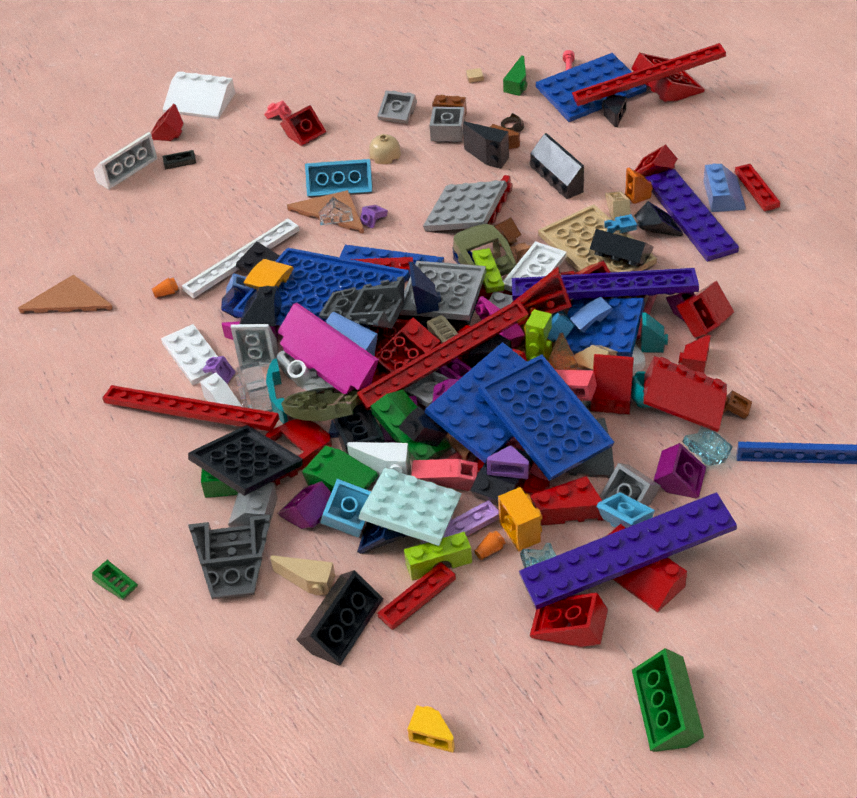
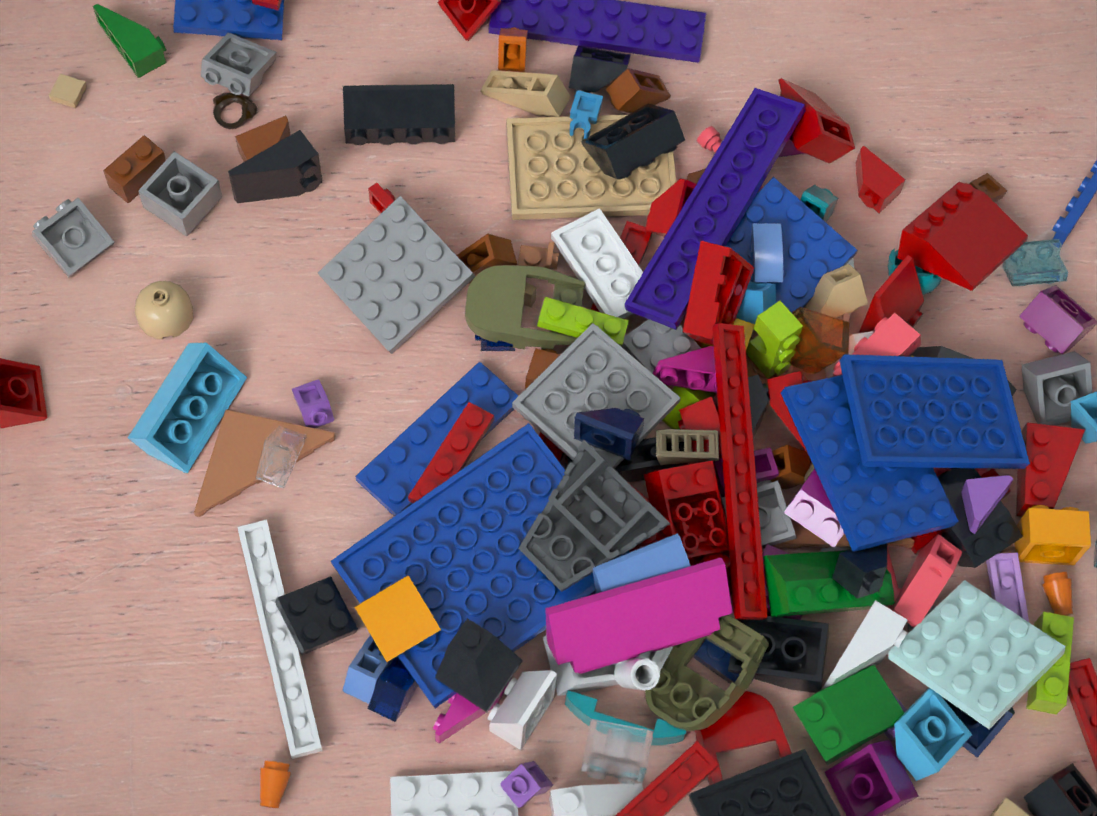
camera: 70 degrees left, 20 degrees up
(536, 110) = (237, 64): none -> light grey plate
(662, 241) = (636, 89): none -> dark orange slope

